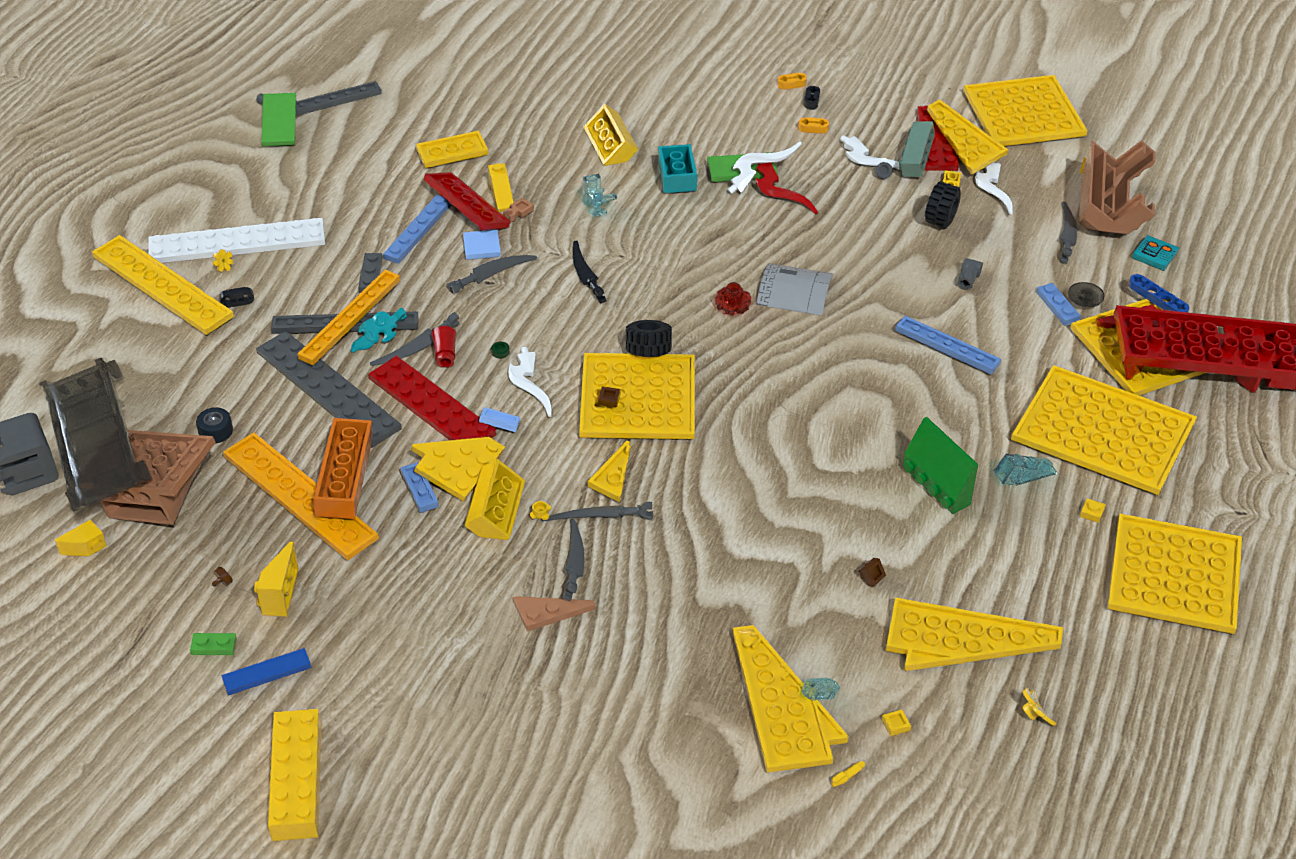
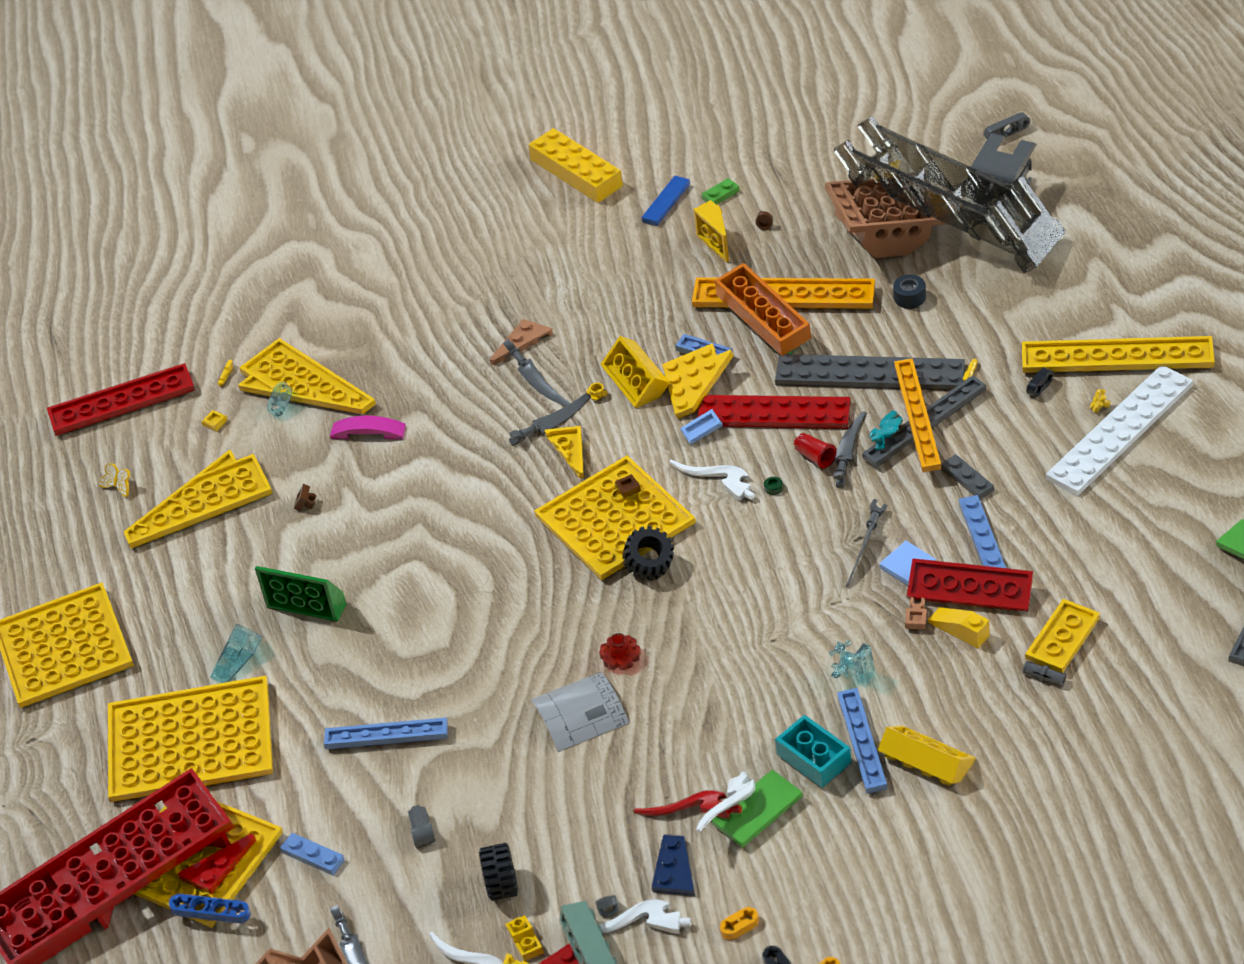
camera: 150 degrees right, 0 degrees up
(257, 343) = (971, 368): none -> yellow piece
(489, 139) = (1044, 673): none -> dark grey pin
(586, 274) = (780, 596): black sword -> none
(637, 166) = (862, 741): none -> medium blue plate
(764, 607) = (368, 425): none -> dark pink slope
(823, 170) = (673, 868): none -> dark blue wing
(979, 812) = (120, 399): none -> red plate
(1086, 294) = (287, 866): clear smoke dish -> none
(1092, 510) = (159, 660): yellow plate -> none

